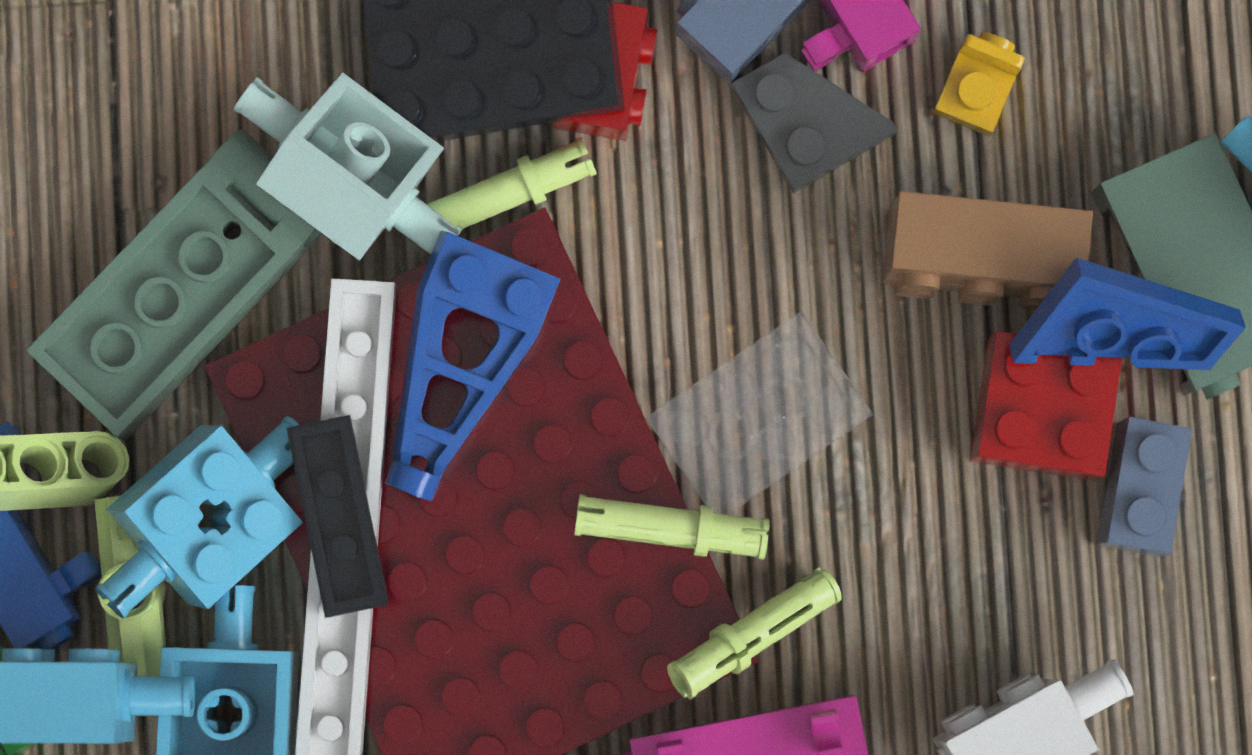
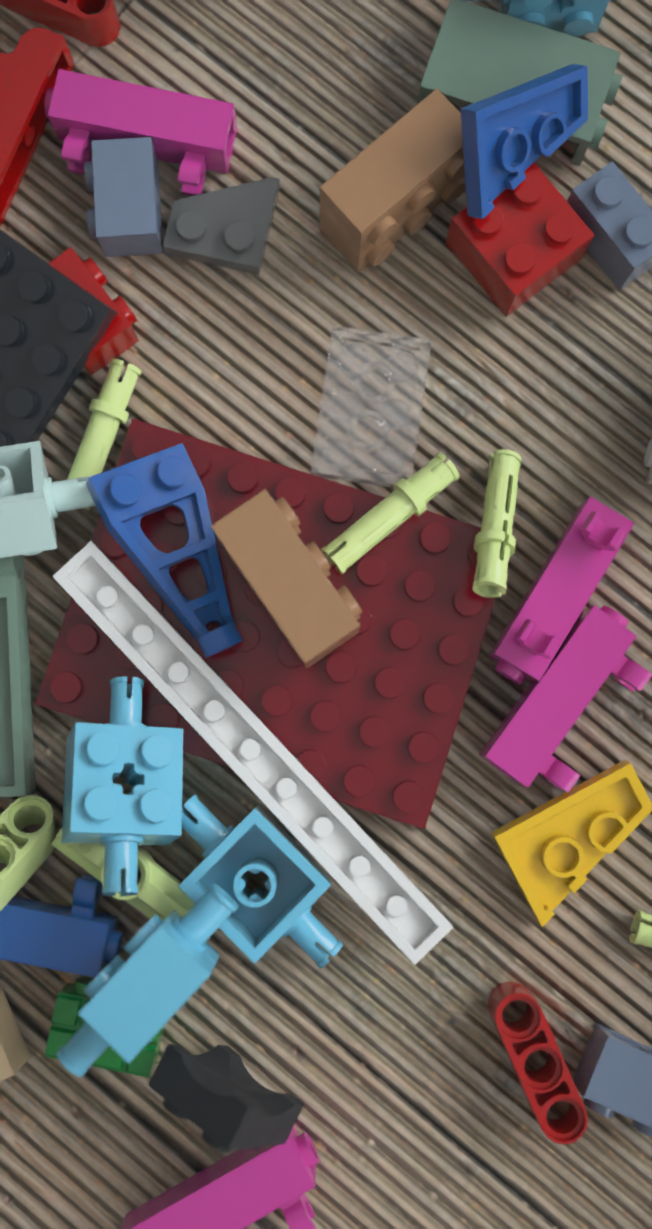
camera: 50 degrees left, 0 degrees up
(337, 516) = (199, 703): black tile -> none
(519, 493) = (289, 576): none -> medium nougat brick
(979, 82) = (295, 108): yellow bracket -> none

